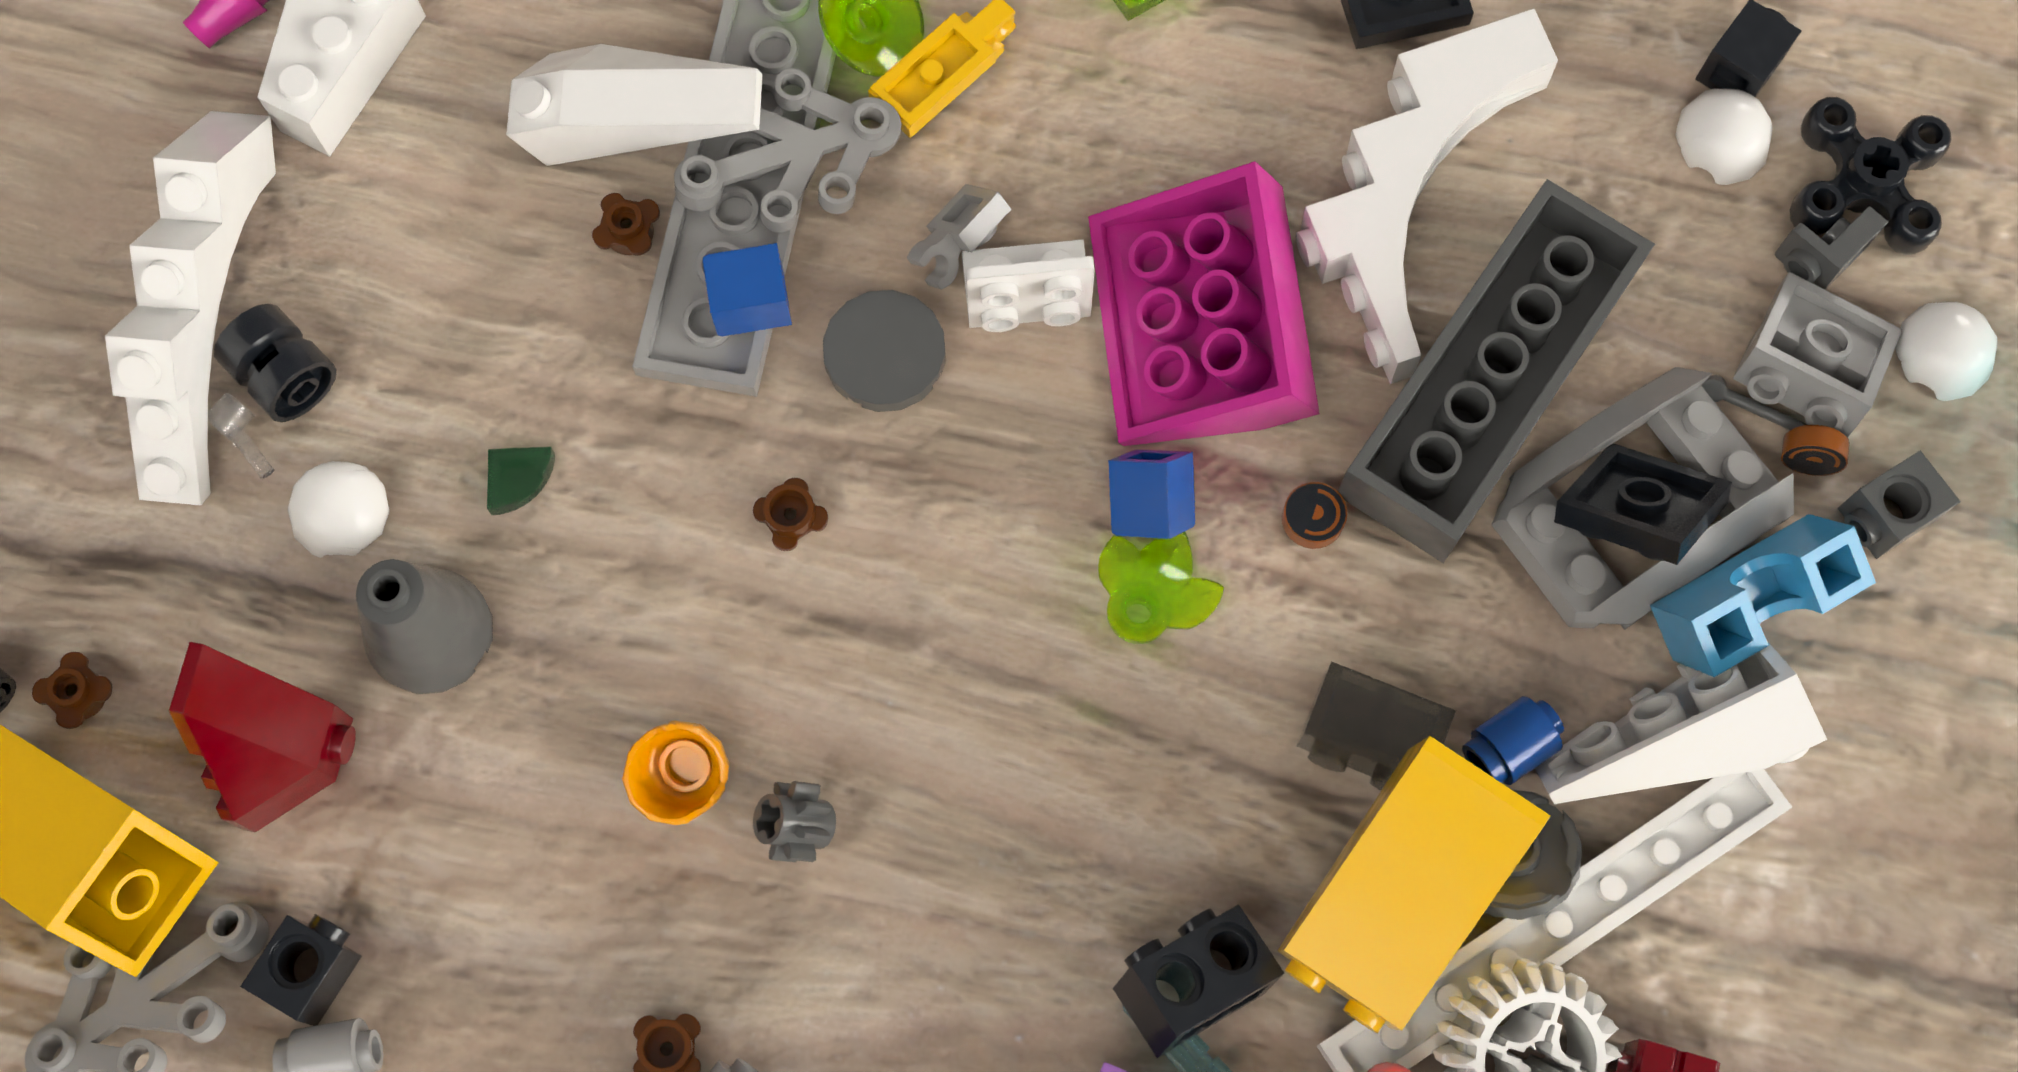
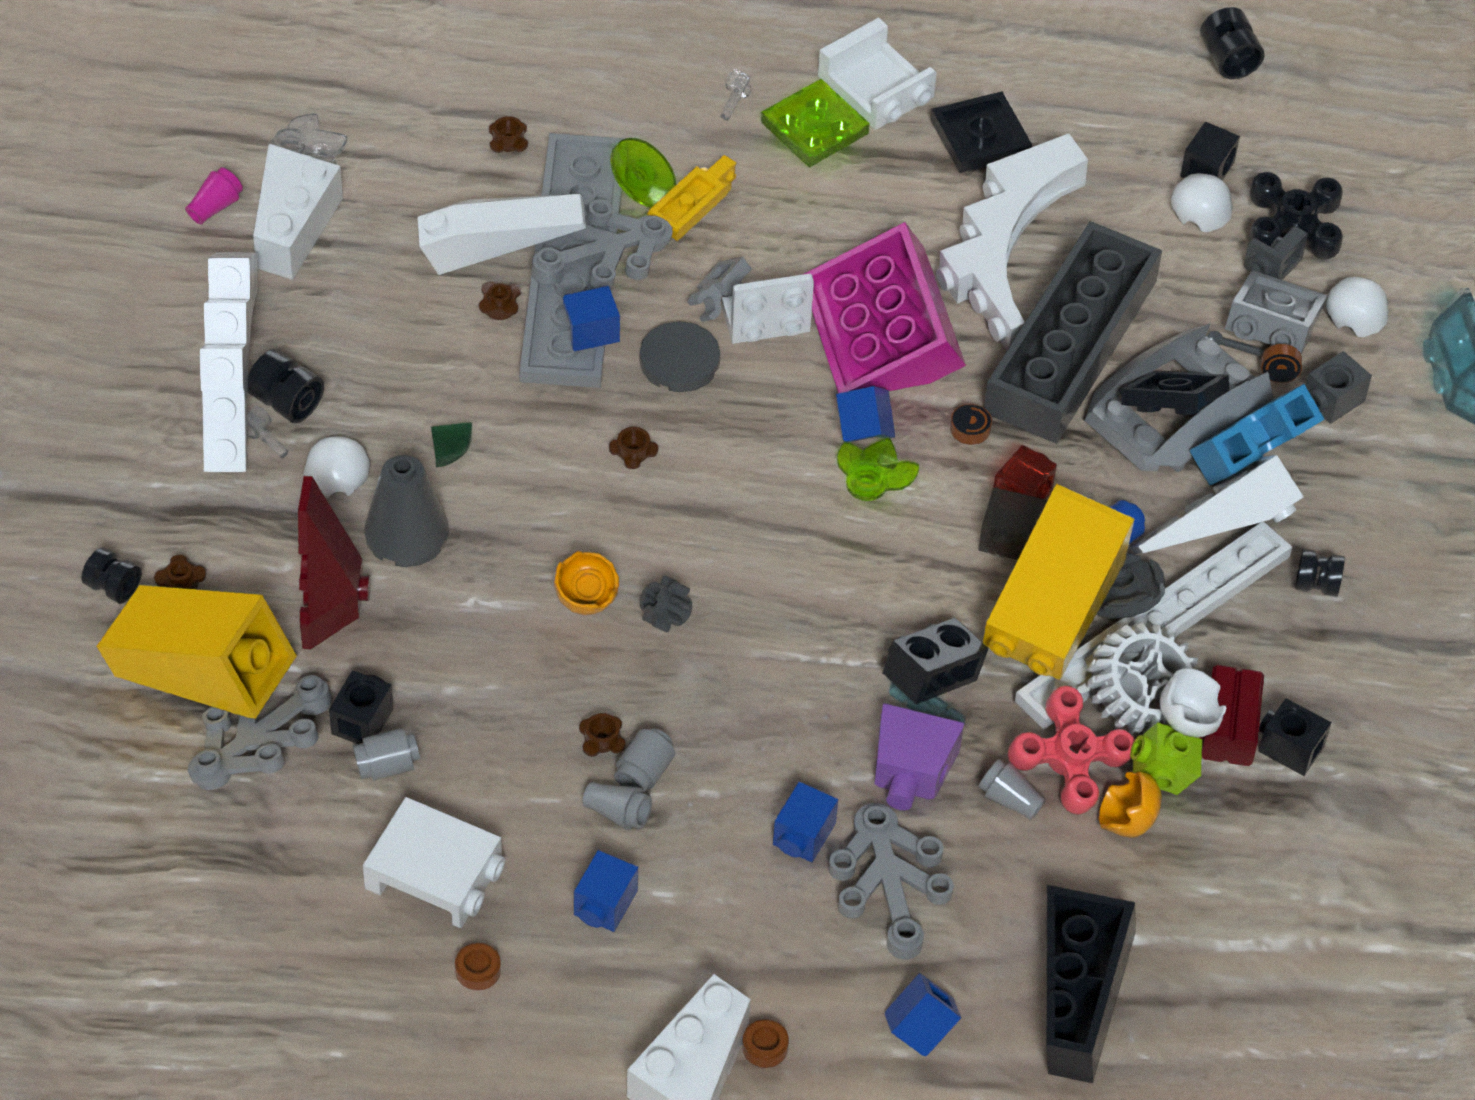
camera: 10 degrees left, 20 degrees down
(1385, 635) = (1027, 473): none -> clear red brick
(1831, 857) = (1329, 575): none -> black wheel

